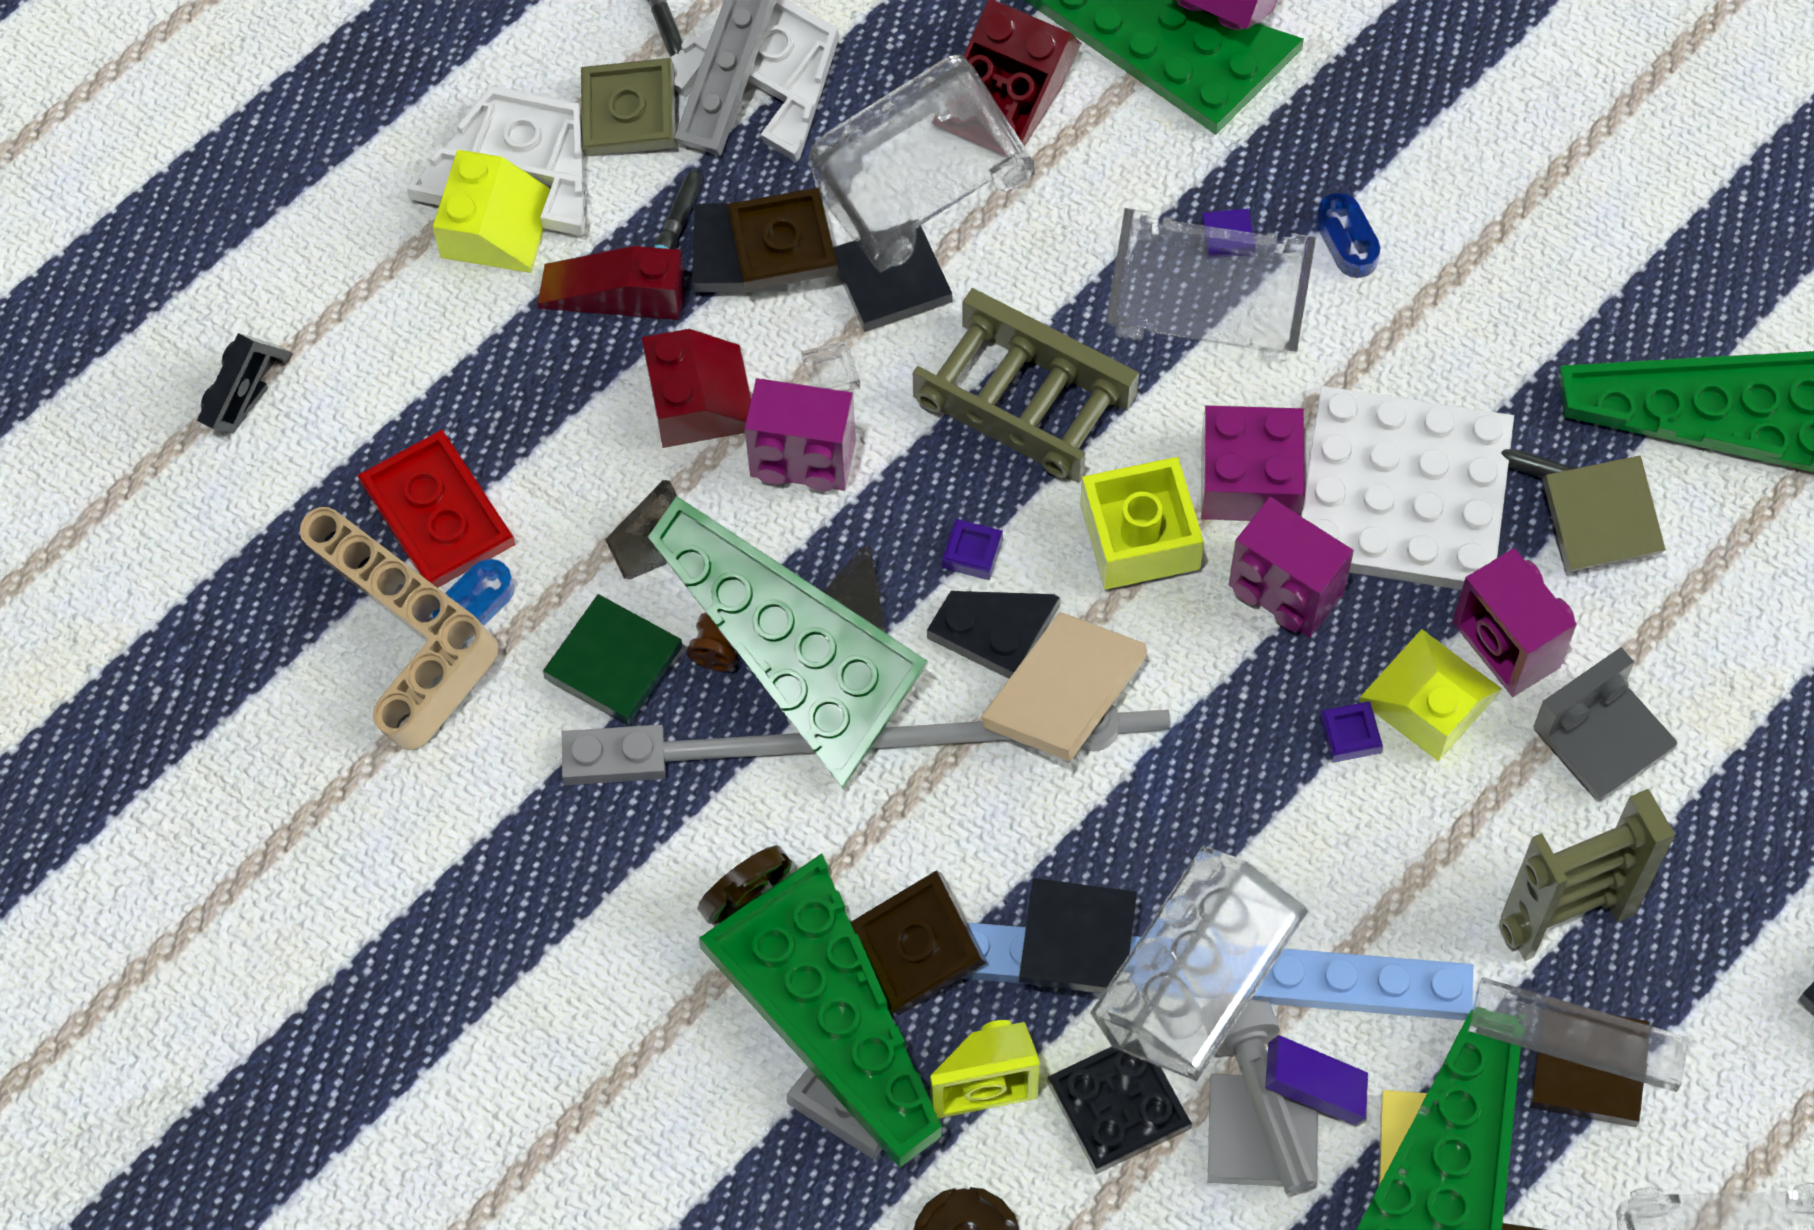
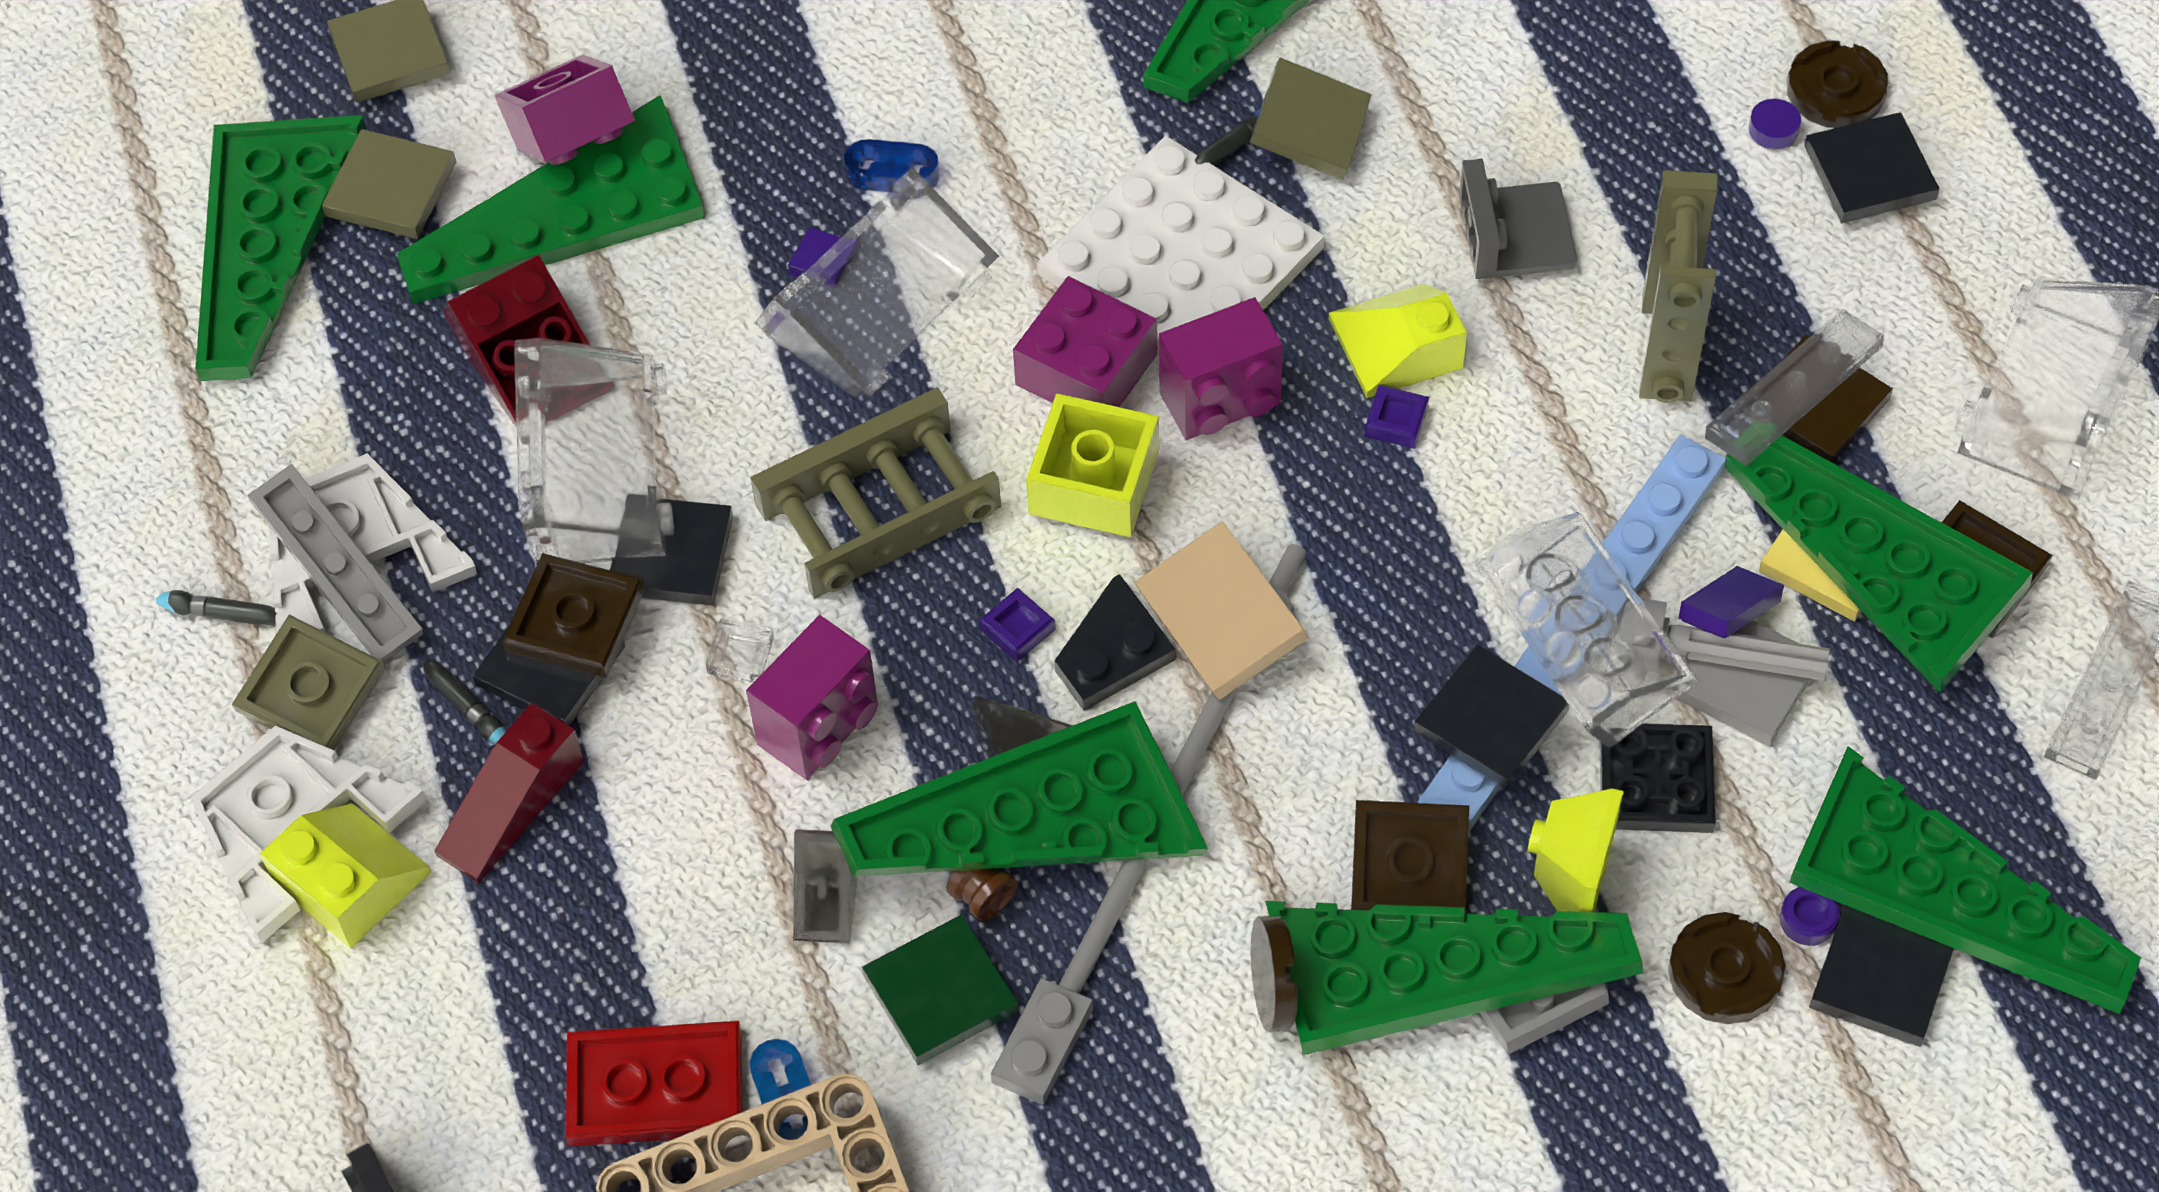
camera: 60 degrees left, 5 degrees down
(696, 386) = (681, 778): dark red slope -> none
(1514, 621) = (1382, 230): magenta brick -> none

